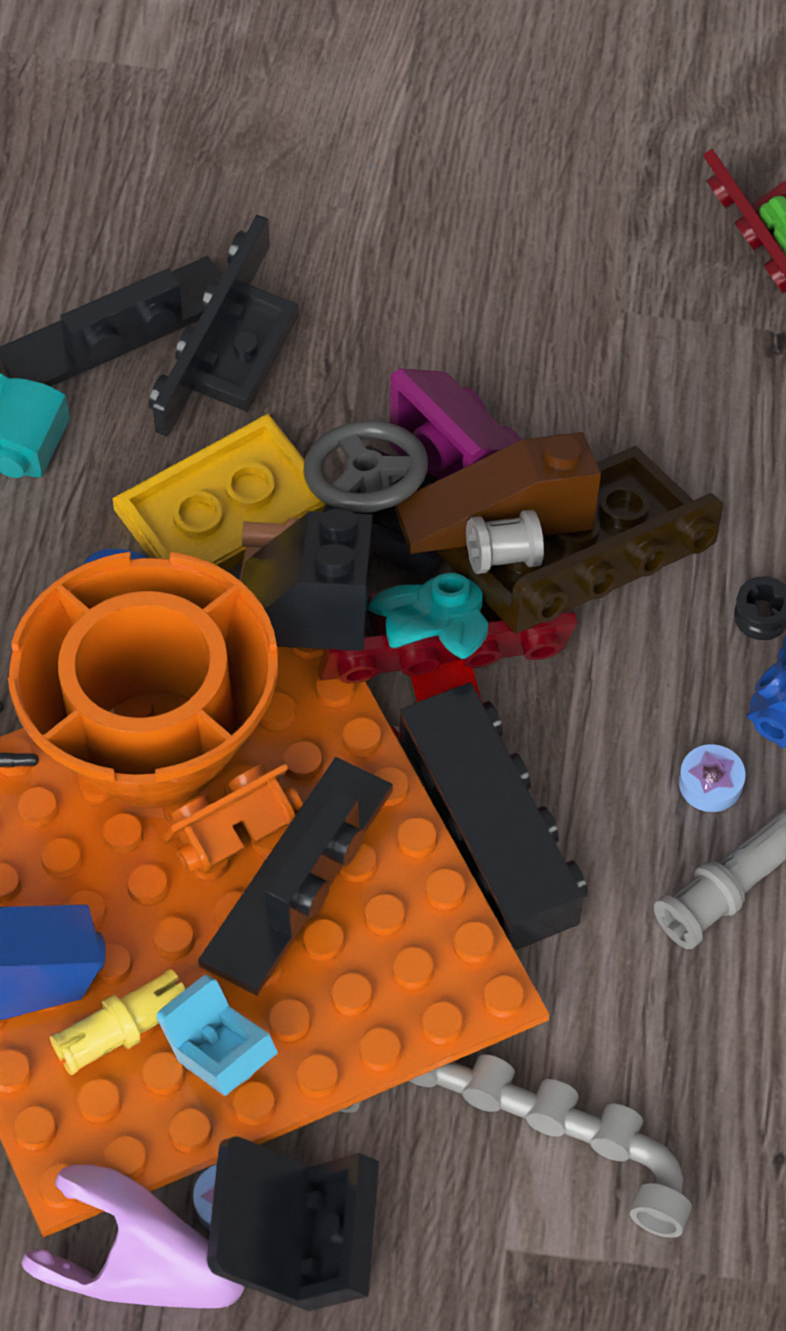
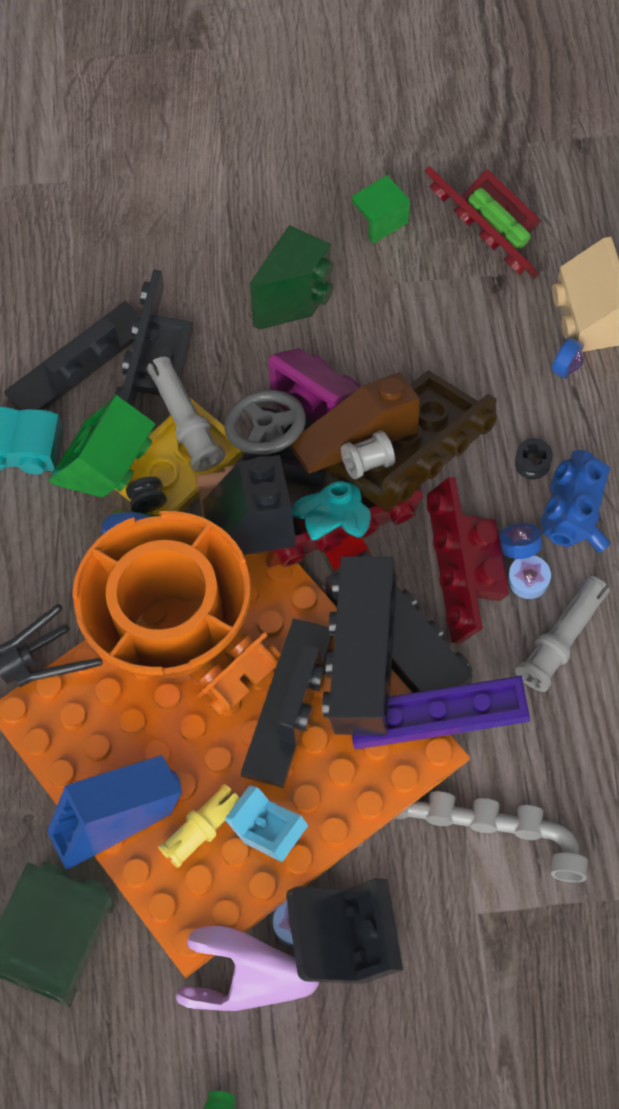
camera: 10 degrees left, 5 degrees up
(120, 460) = (104, 450): none -> green slope
(164, 532) = (146, 494): none -> black bush
(255, 455) = (191, 428): none -> light grey pin
(424, 813) = (362, 646): none -> black brick
(460, 273) = (292, 280): none -> dark green slope
(516, 936) = (452, 711): none -> dark purple tile
(623, 734) = (467, 560): none -> dark red bracket
(628, 198) = (383, 207): none -> green panel
(711, 722) = (520, 540): none -> blue tile

